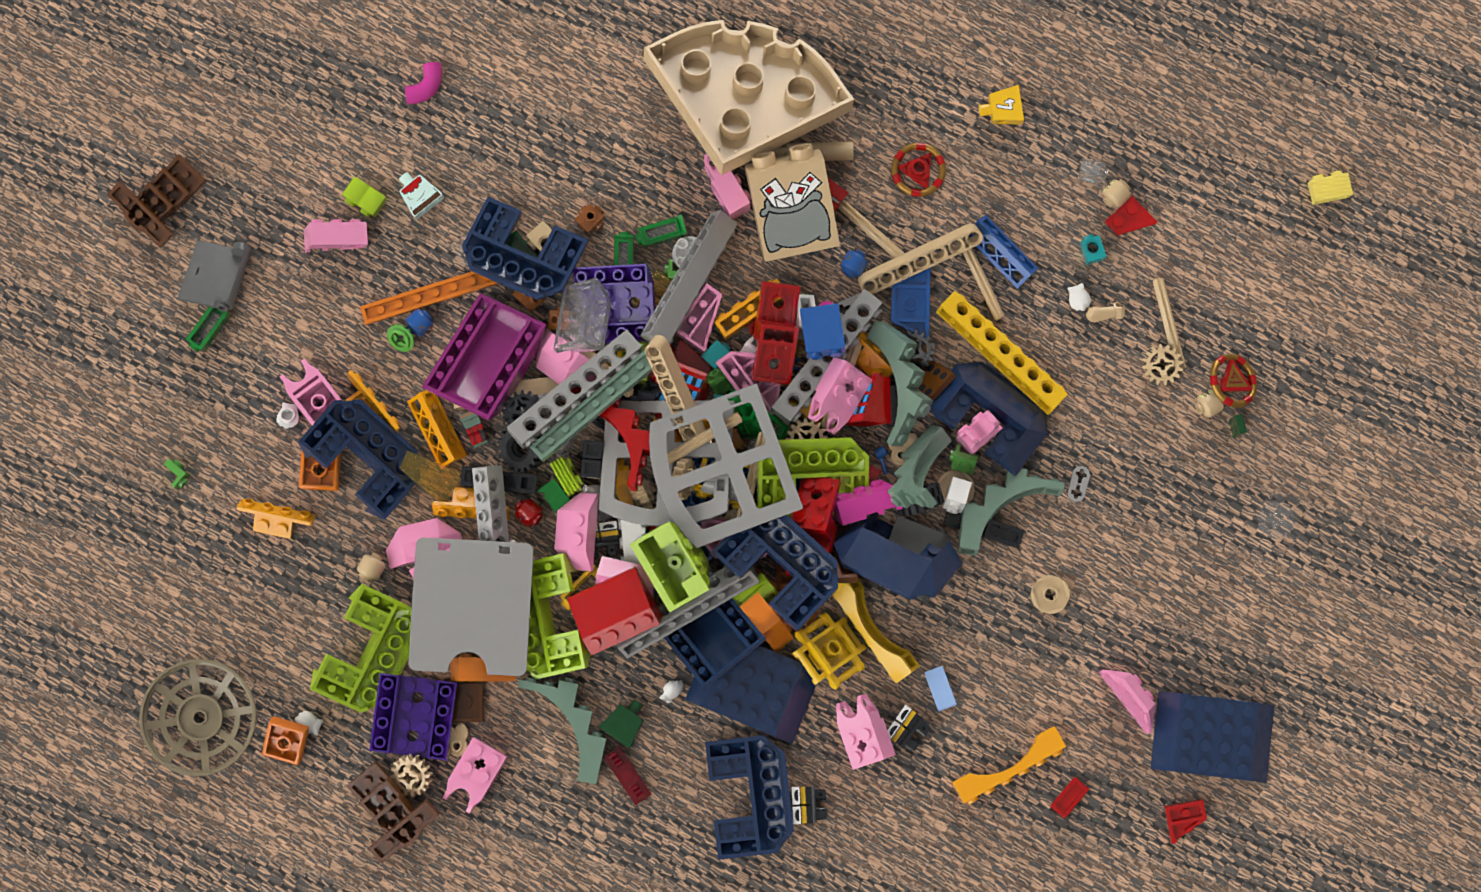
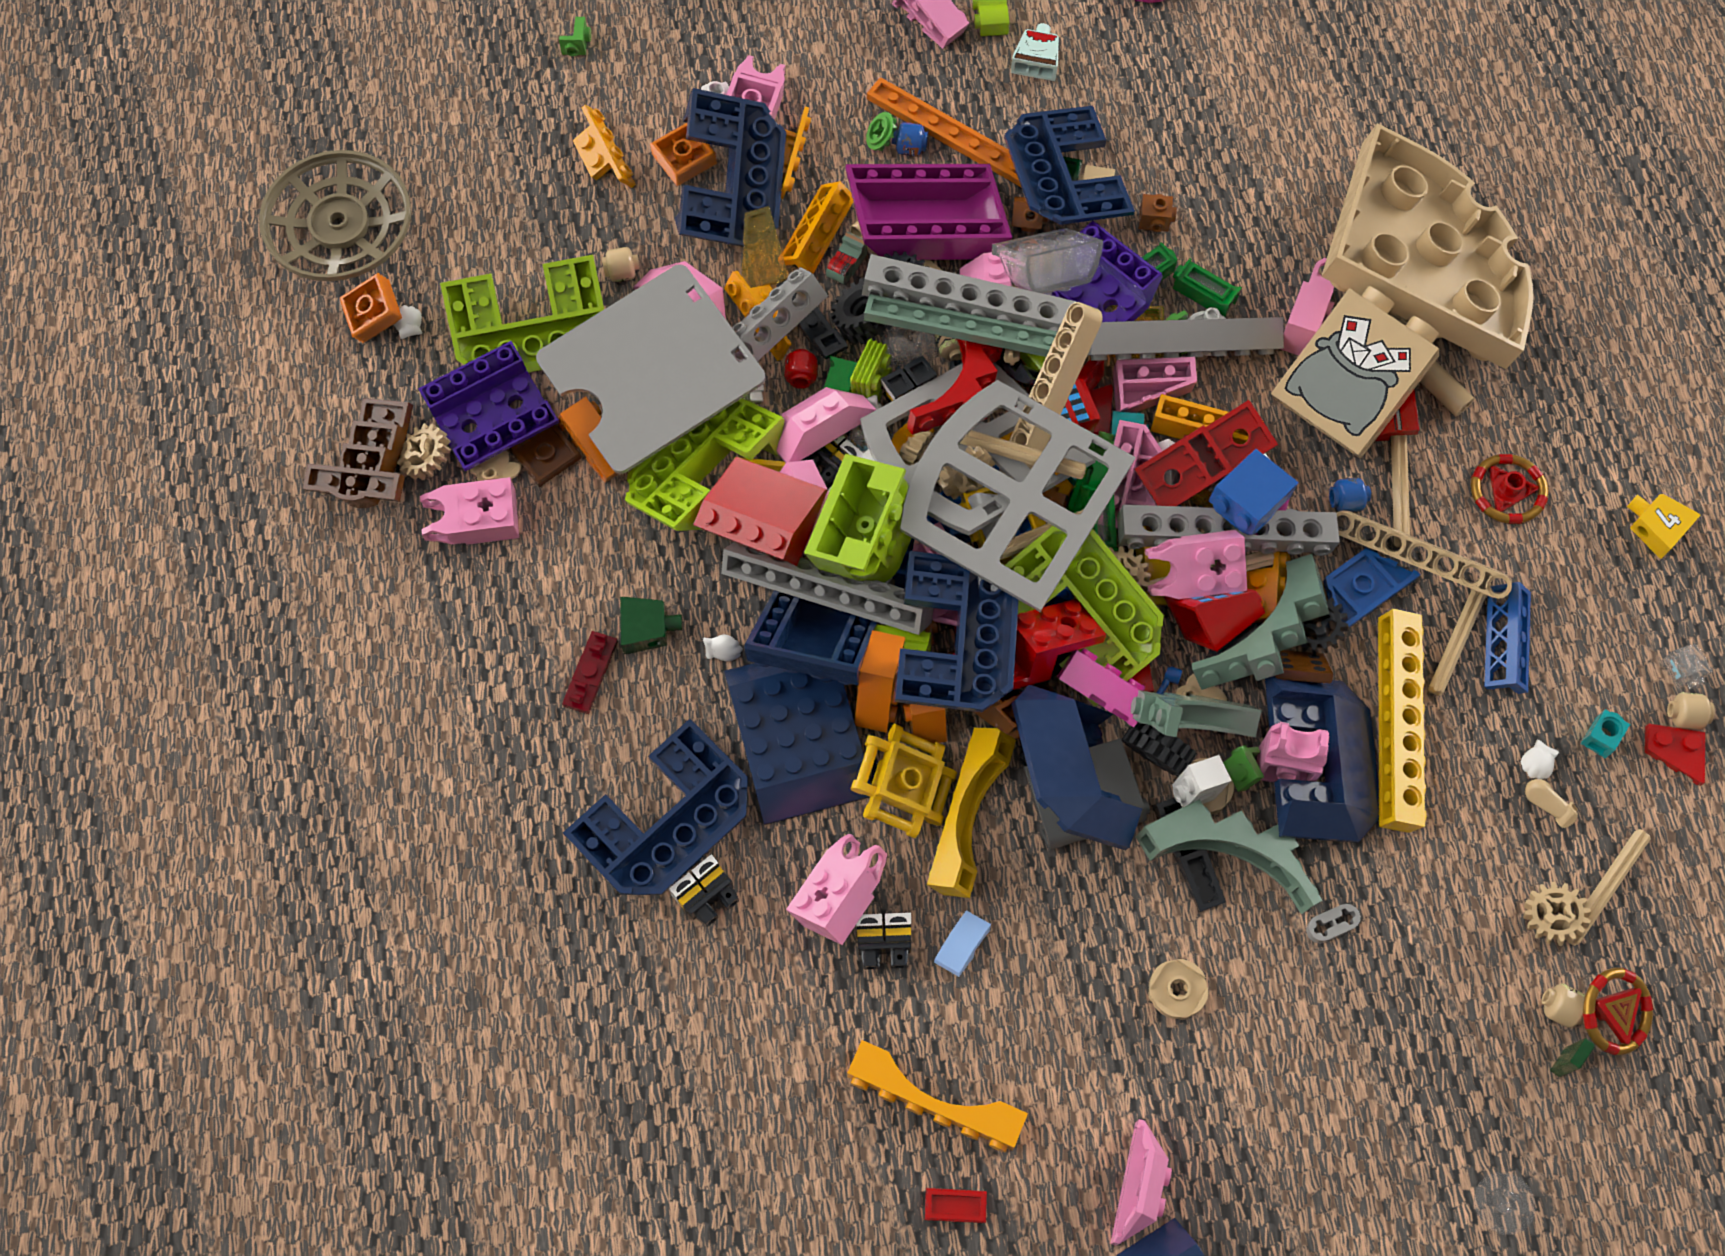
camera: 50 degrees right, 15 degrees down
(590, 746) = (594, 605): sand green arch -> none

